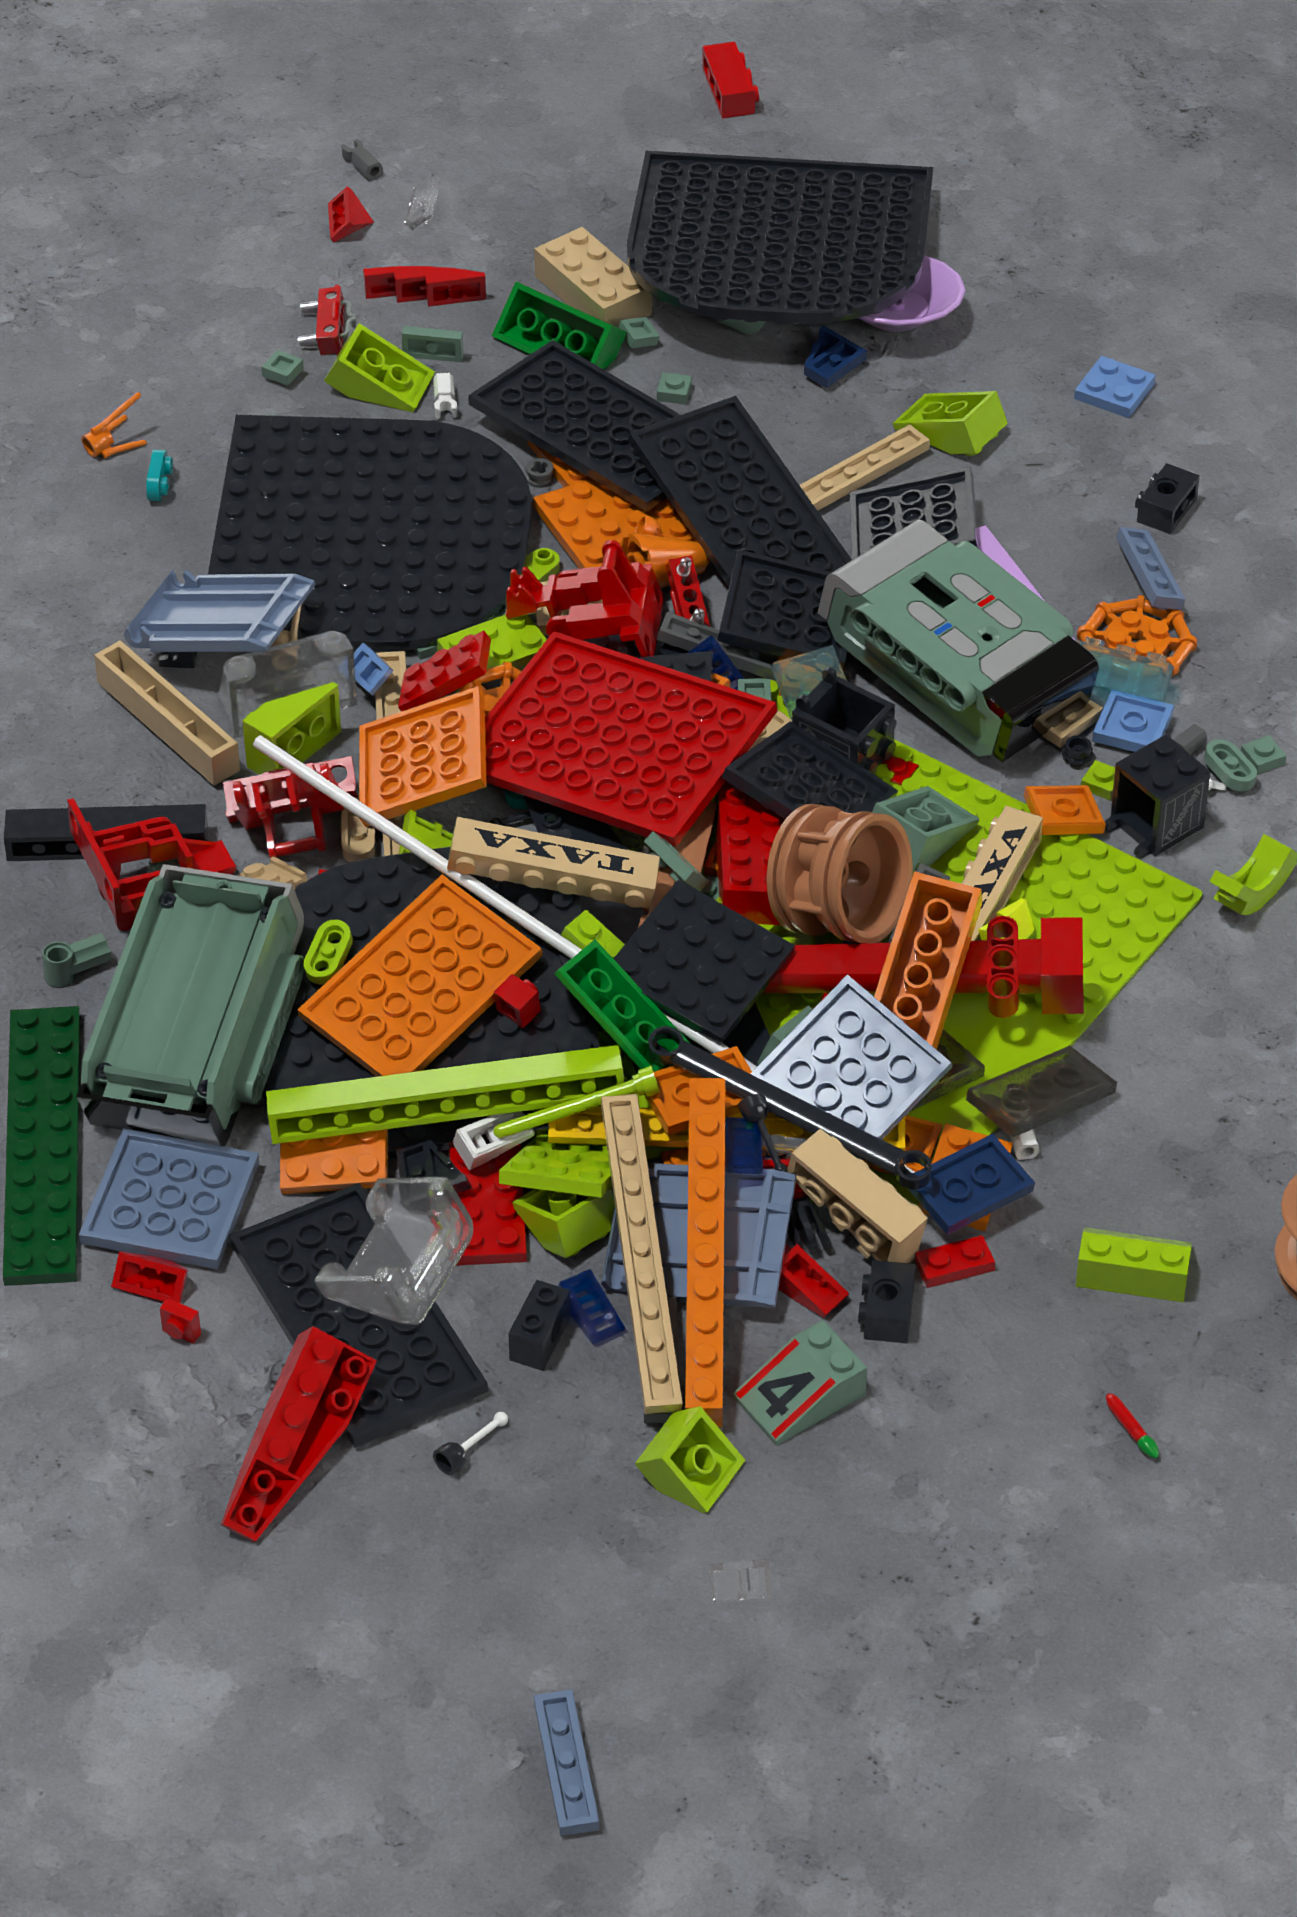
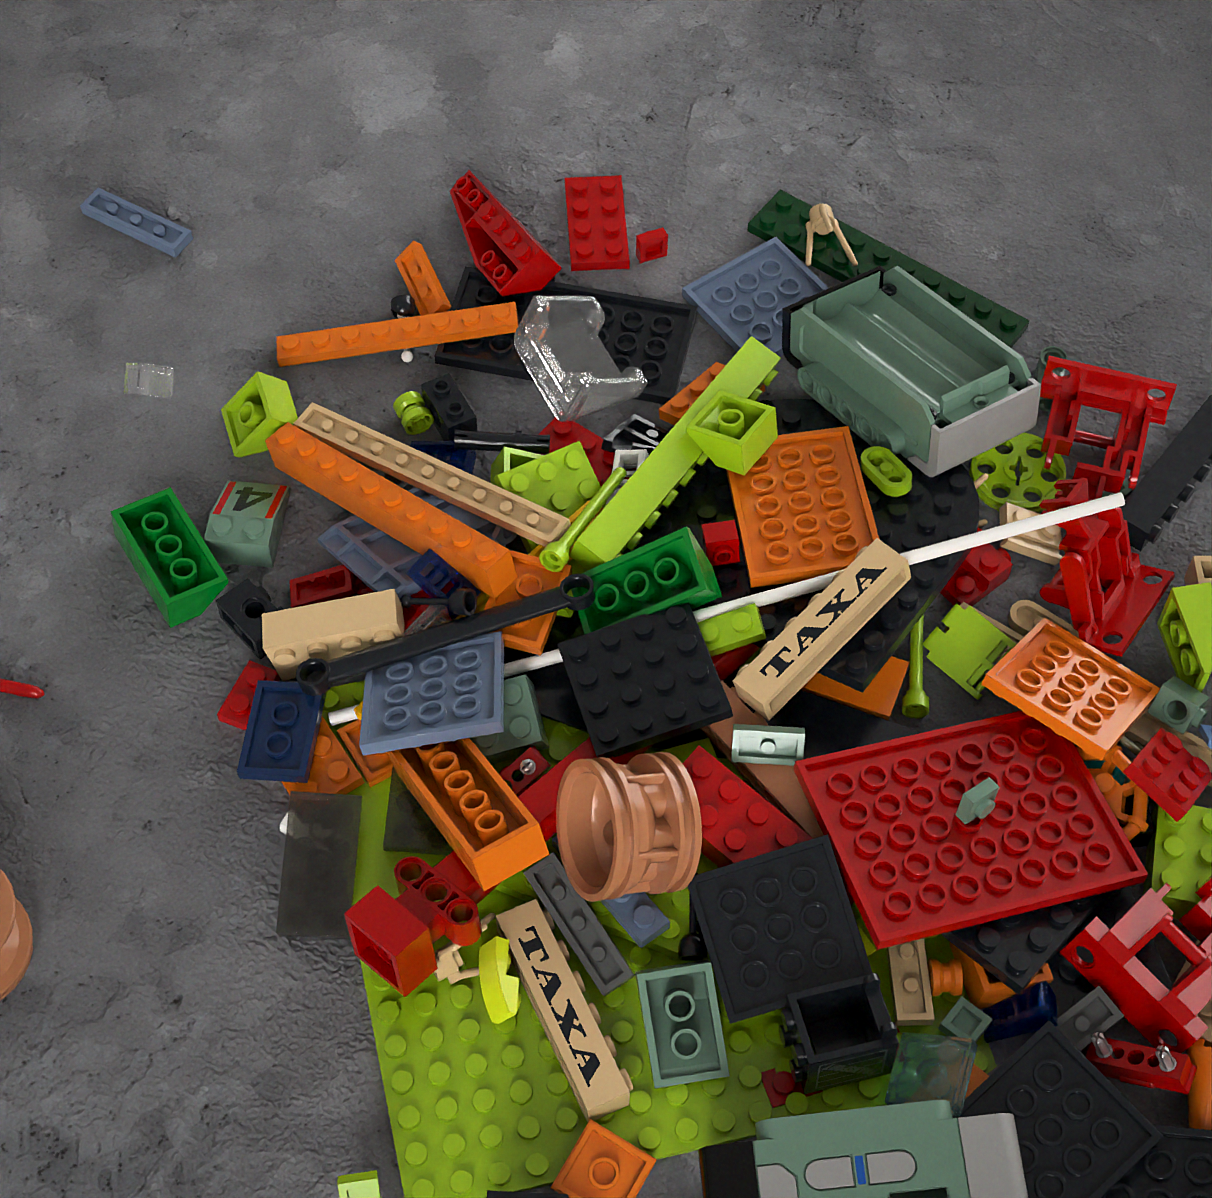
camera: 130 degrees right, 10 degrees up
(36, 1195) = (823, 223): none -> tan plant
(149, 1276) = (708, 259): red slope -> none
(183, 1394) = (596, 223): none -> red plate
(359, 708) = (1166, 710): none -> sand green brick
(395, 1047) = (734, 431): none -> lime slope
(406, 1460) = (422, 280): none -> orange plate
(493, 1427) = (397, 334): none -> orange plate
(531, 1241) = (496, 441): none -> black pin
(568, 1350) = (412, 411): none -> lime wheel
(602, 721) = (978, 801): none -> sand green plate
(902, 1392) = (169, 555): none -> green slope
(1133, 1264) = (119, 802): lime slope -> none

